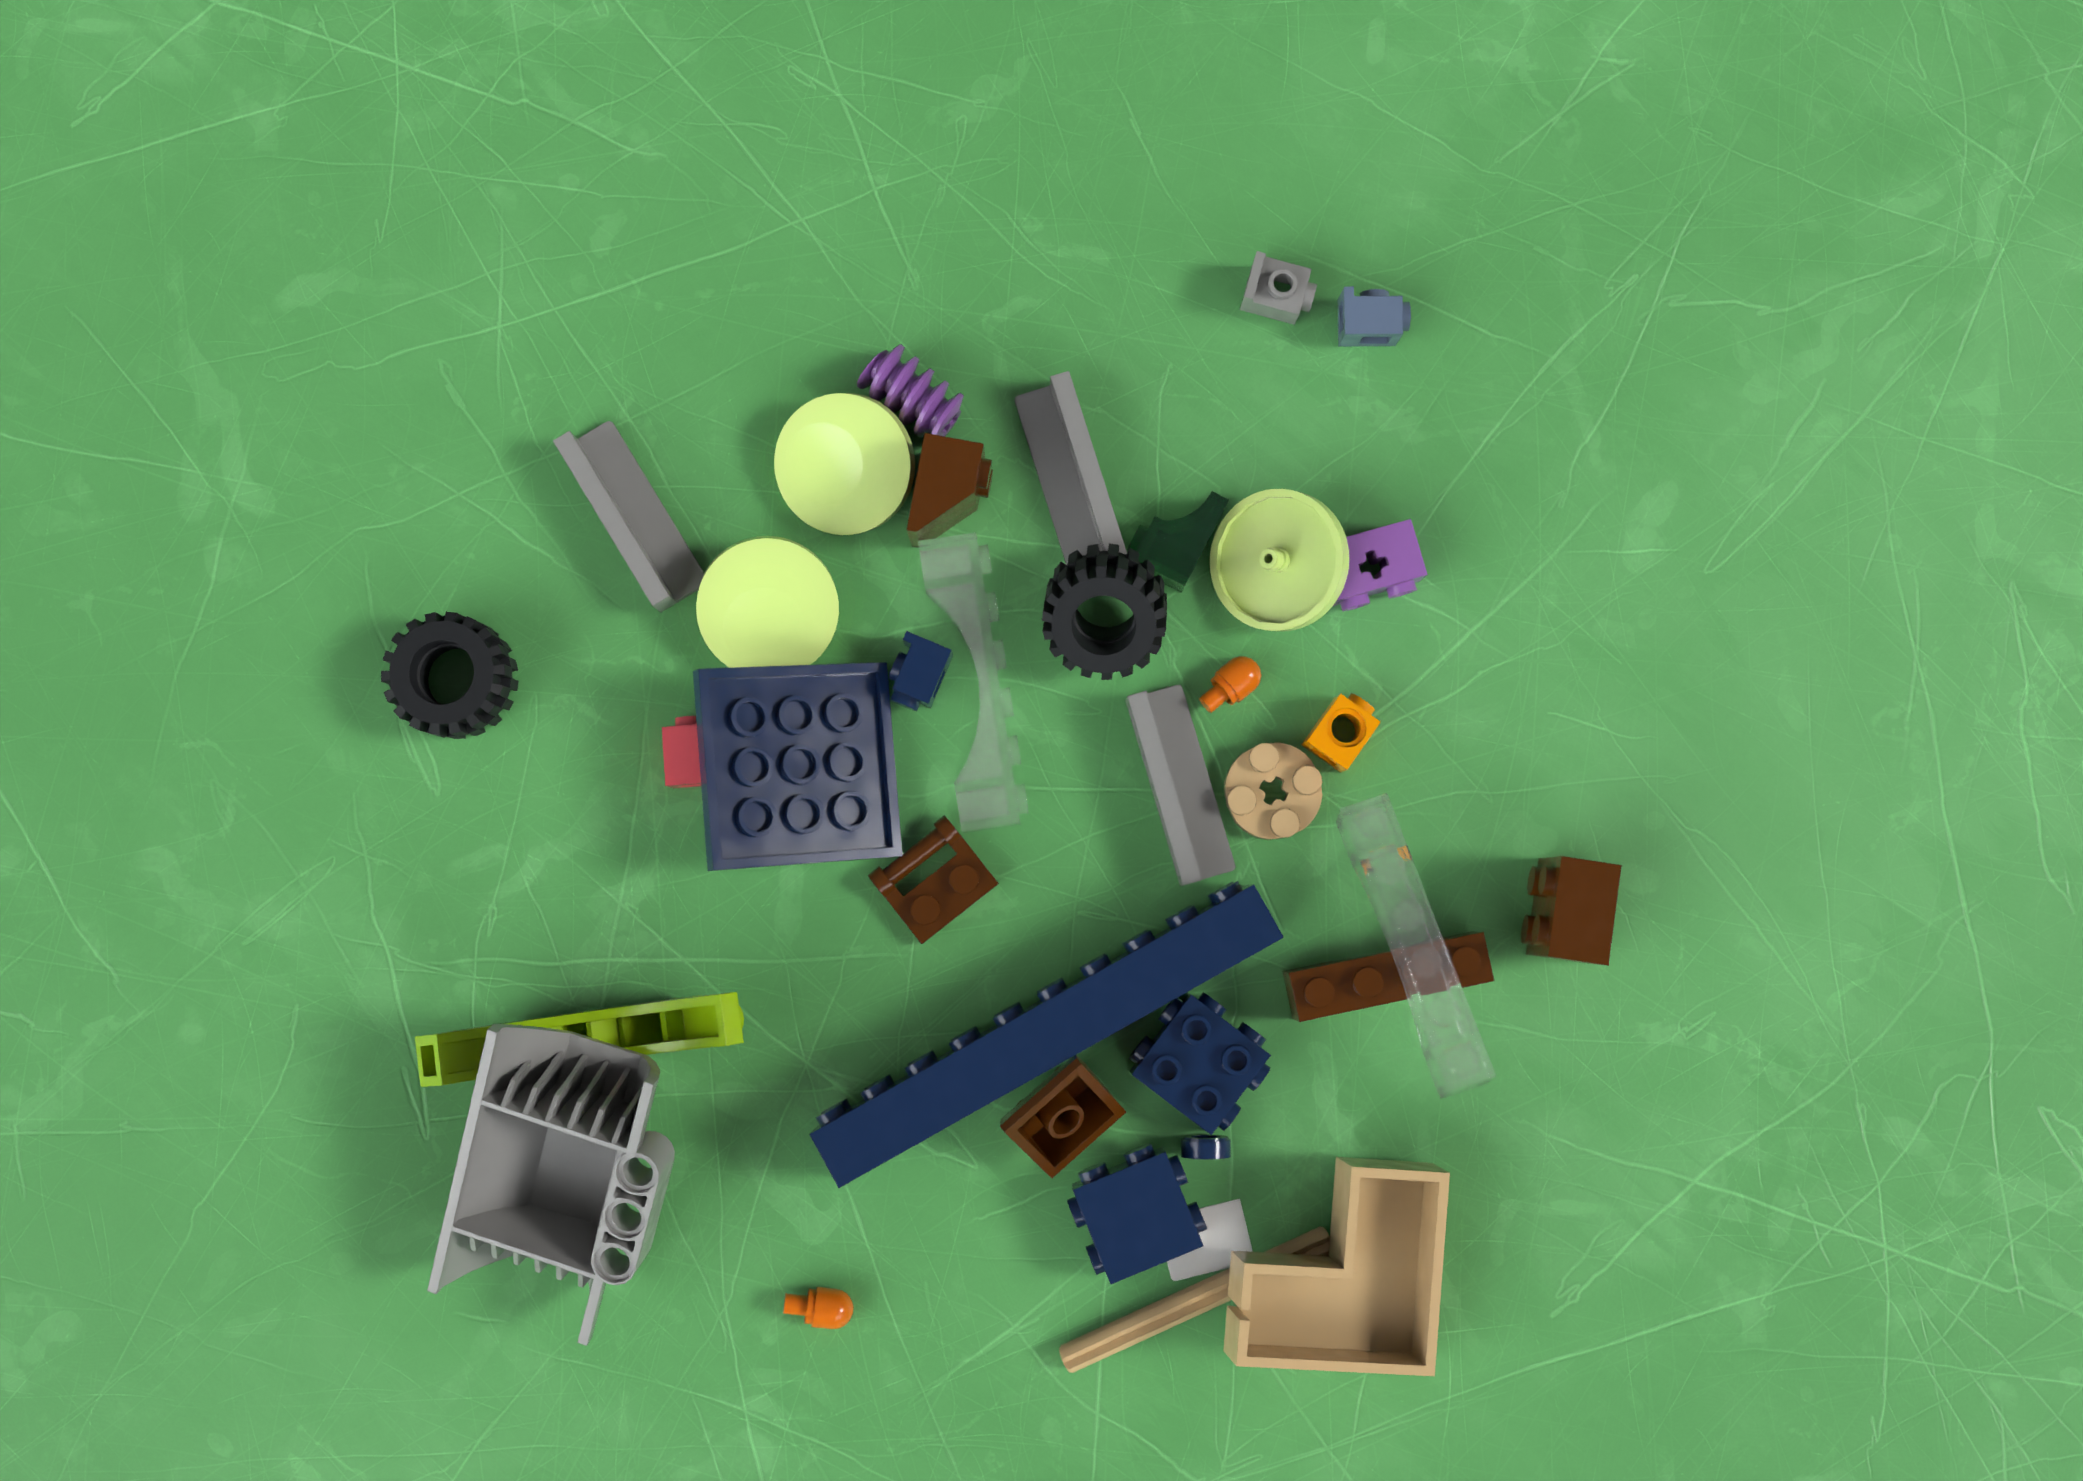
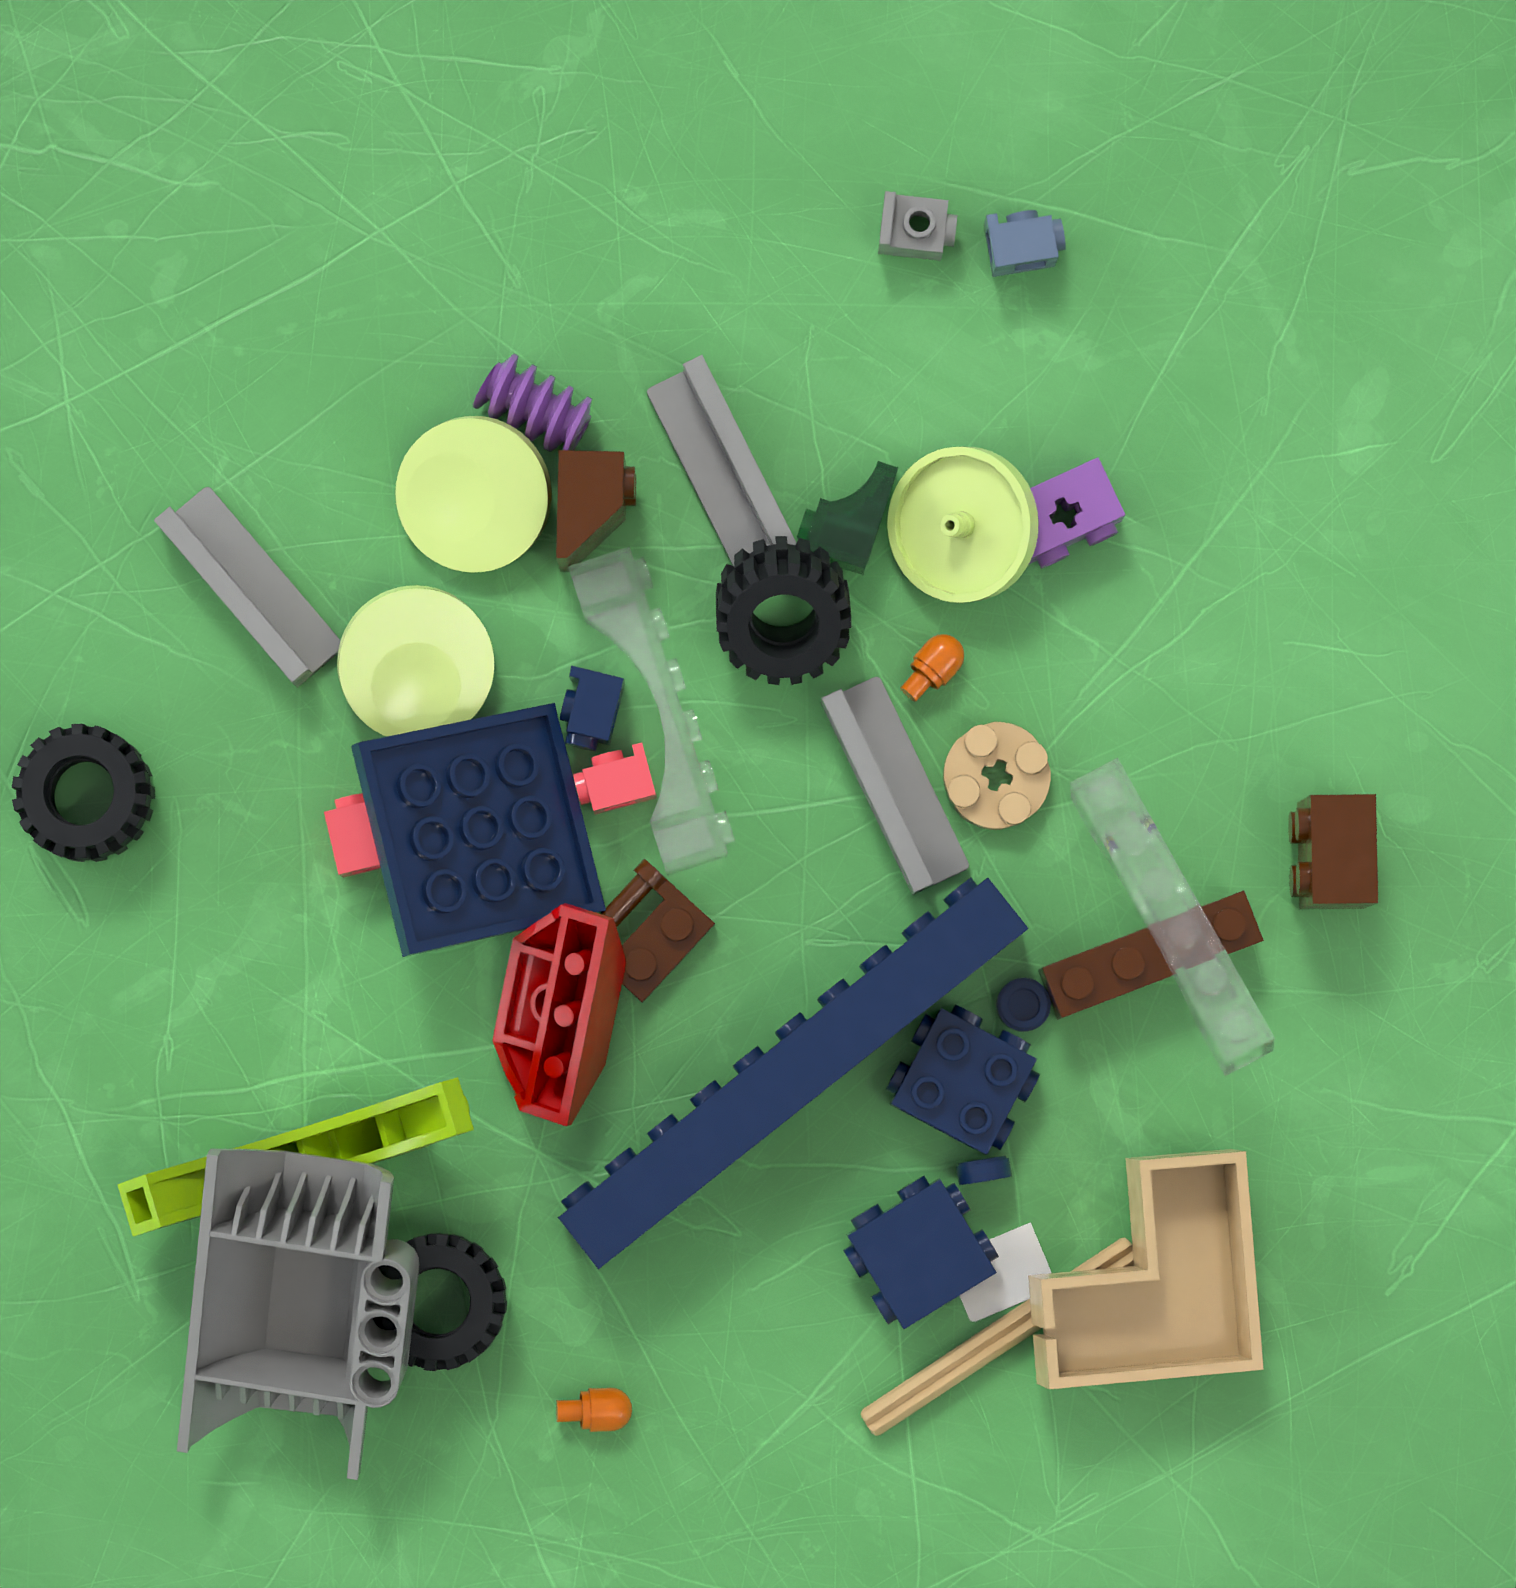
camera: 10 degrees left, 0 degrees up
(736, 1187) = (486, 1302): none -> black tyre
(844, 941) = (559, 1010): none -> red wedge
(930, 741) = (615, 781): none -> coral brick
(1062, 1116) = (825, 1160): reddish brown slope -> none
(1264, 1001) = (1023, 1004): none -> dark blue tile
(1329, 749) = (1044, 716): light orange brick -> none

